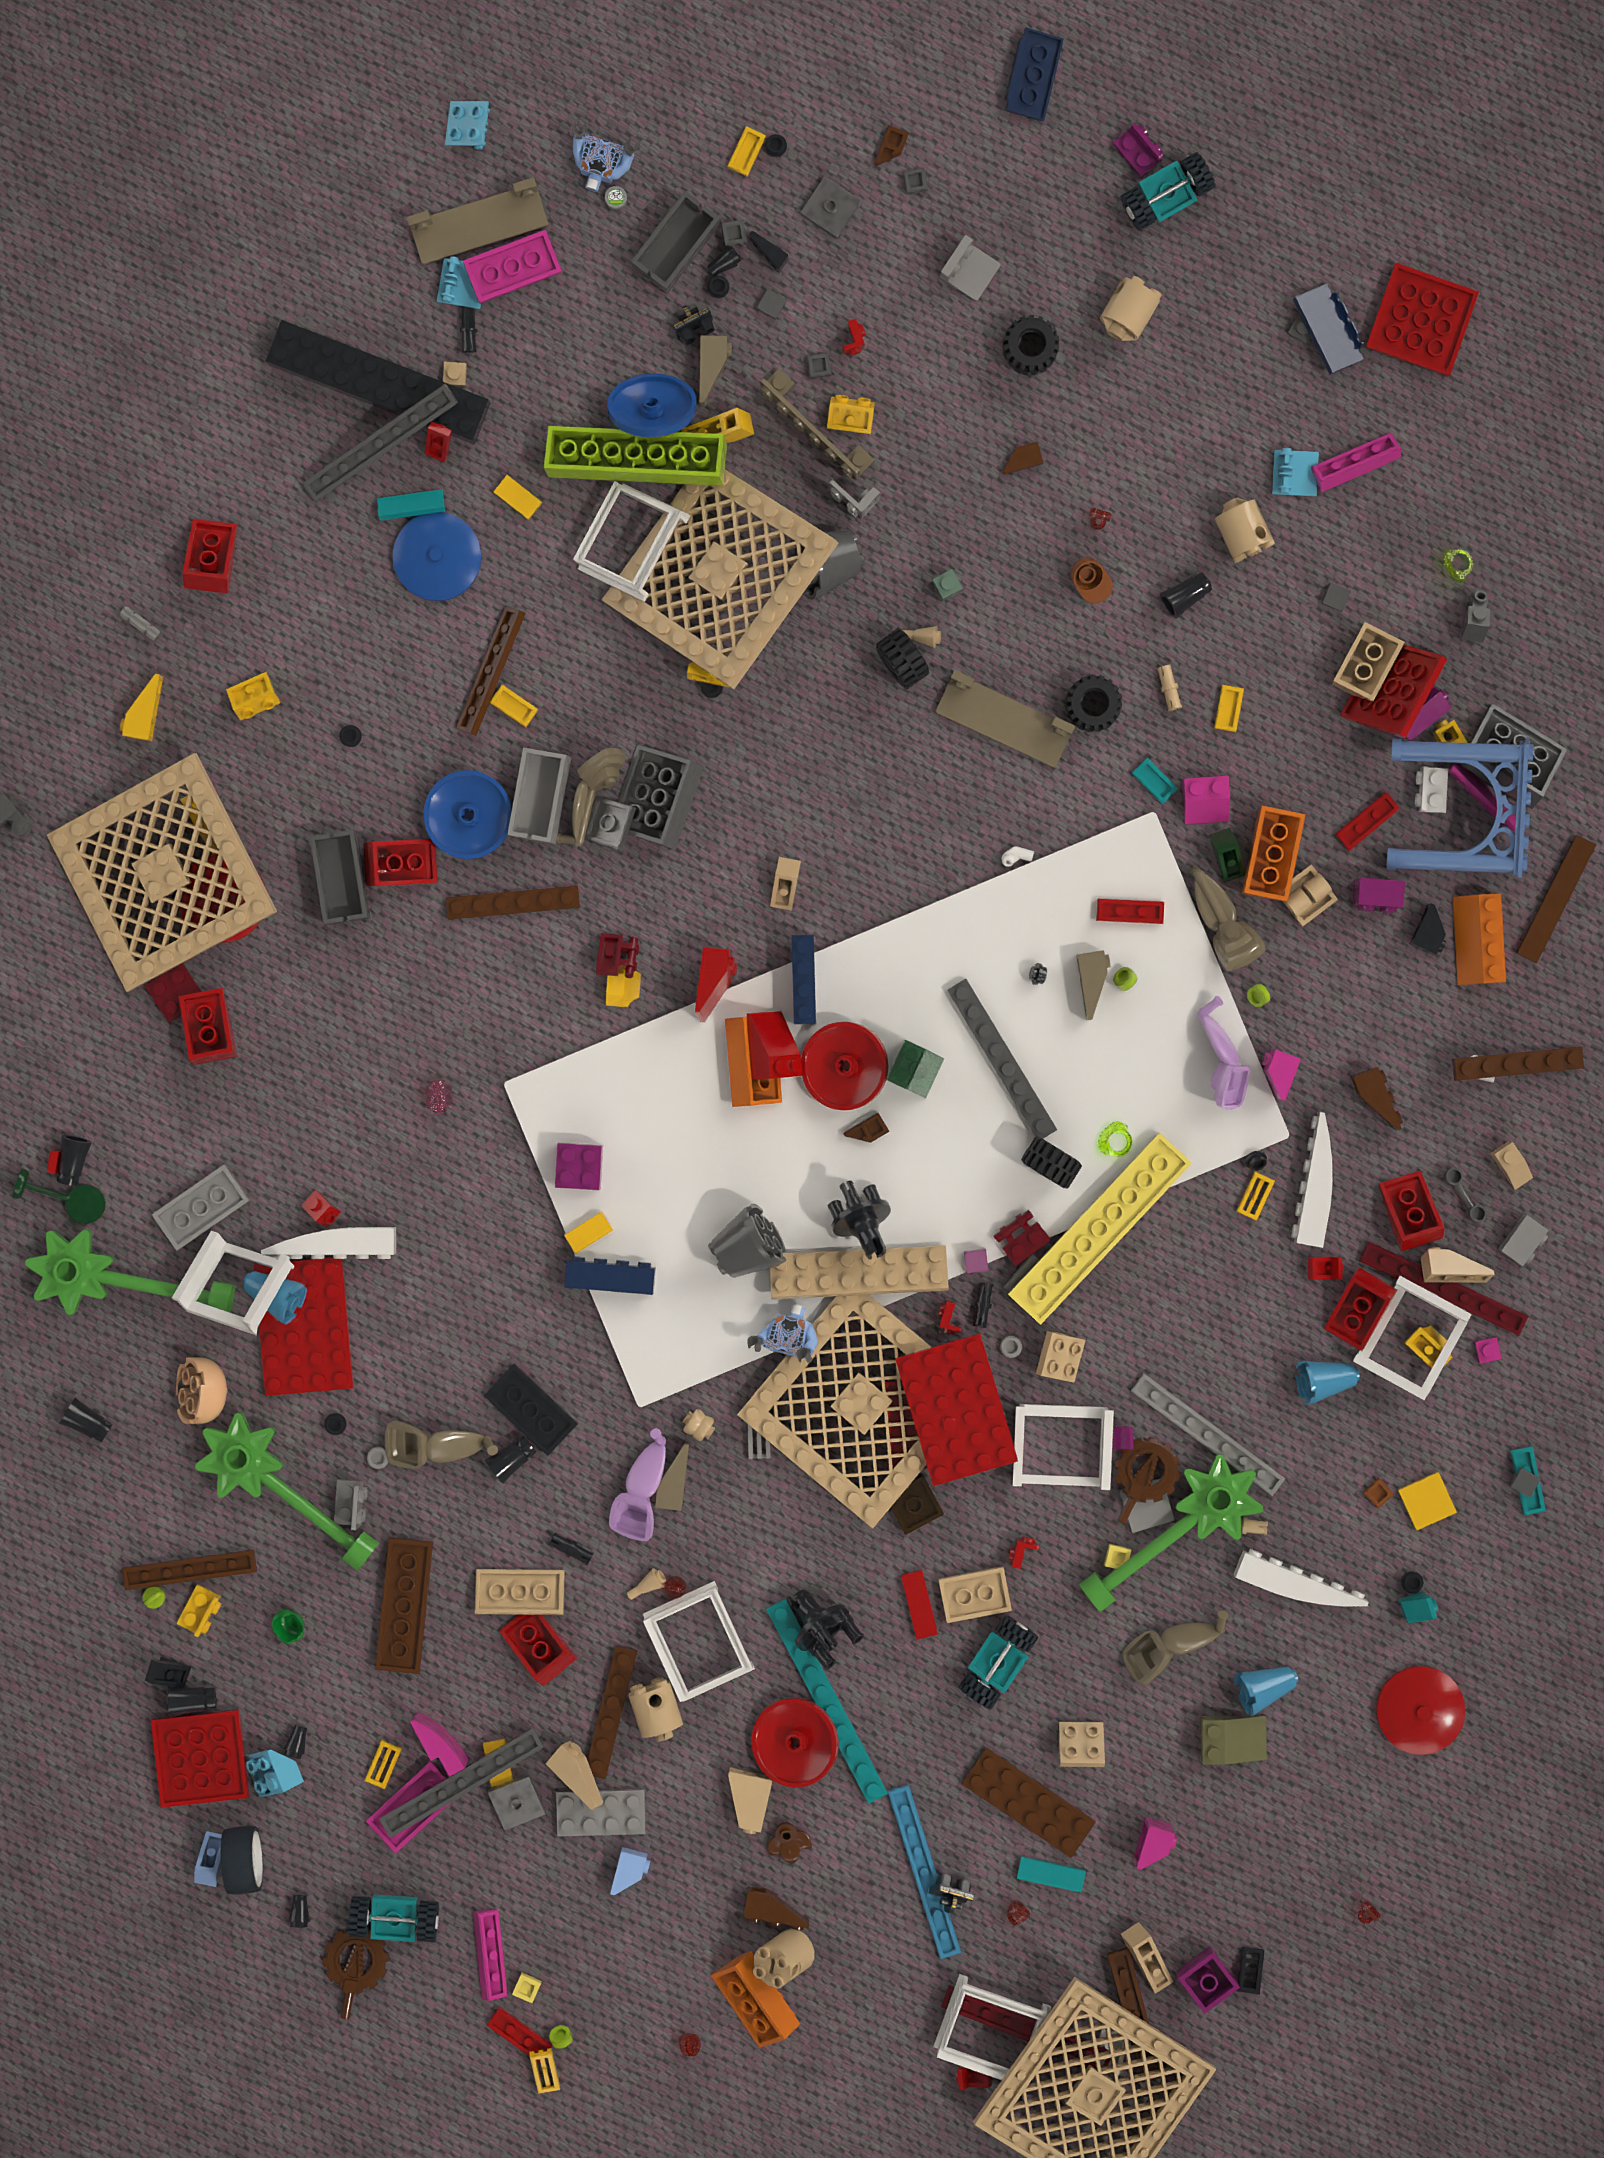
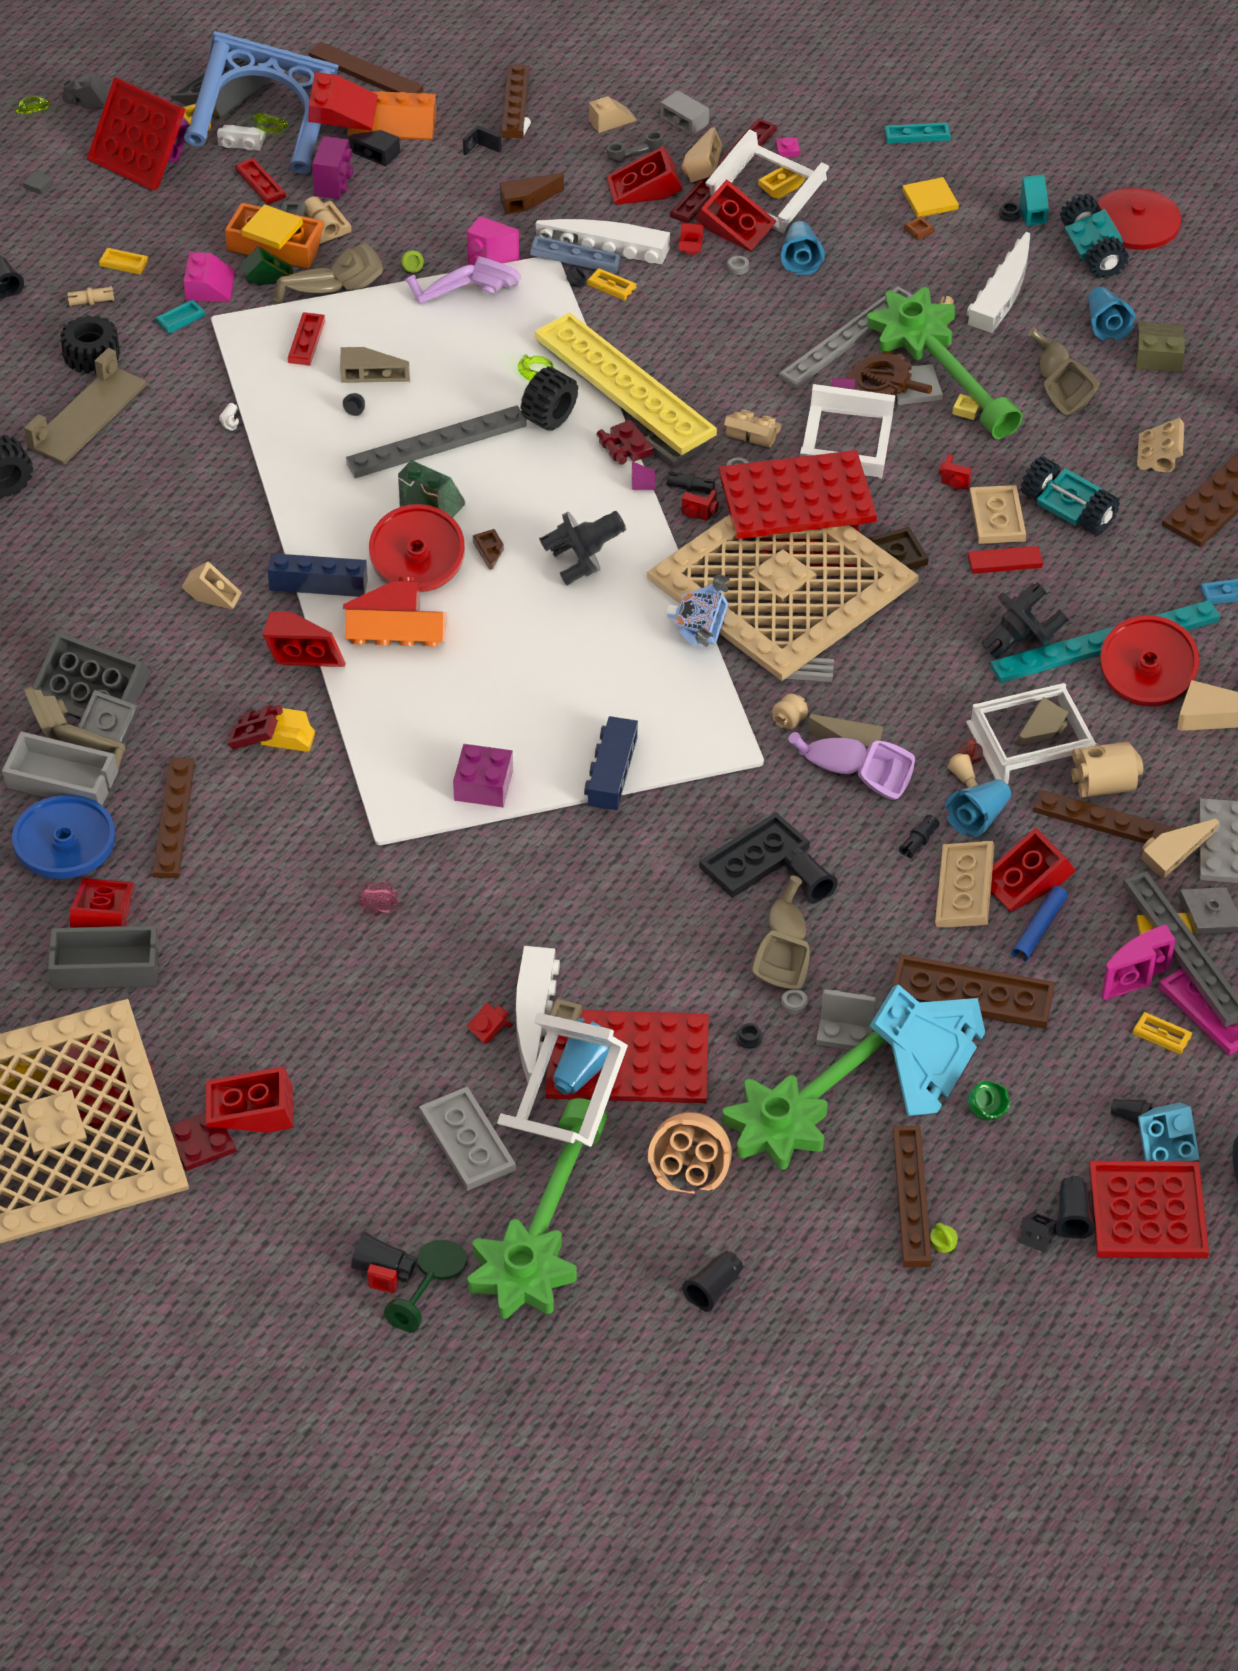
camera: 80 degrees left, 40 degrees down
(199, 1610) = (964, 1190): yellow bracket -> none
(324, 1272) = (566, 1010): none -> dark tan plate
(331, 1574) = (928, 1044): none -> medium azure plate
(485, 1657) = (1040, 922): none -> blue piece
(588, 1232) = (560, 781): yellow tile -> none
(604, 1601) = (977, 807): none -> dark azure cone
(707, 1649) = (1043, 723): none -> dark tan slope
(748, 1244) = (594, 632): dark grey cone -> none
(854, 1274) = (640, 564): tan plate -> none
(1125, 978) = (374, 341): lime tile -> none
(1266, 852) = (272, 226): none -> yellow tile
(1289, 1155) = (575, 254): none -> sand blue tile
(1299, 1317) = (738, 265): none -> light grey tile
(1306, 866) = (294, 207): none -> dark grey plate
(1368, 662) = (106, 158): tan slope -> none
(1373, 1669) = (1094, 236): none -> plate
(1458, 826) = (266, 118): none -> clear neon green piece
(1458, 1041) = (482, 137): none -> black bracket
(1464, 891) = (341, 103): none -> red slope
(1480, 792) = (256, 104): dark pink slope -> none
(1525, 1482) = (918, 129): dark grey tile -> none

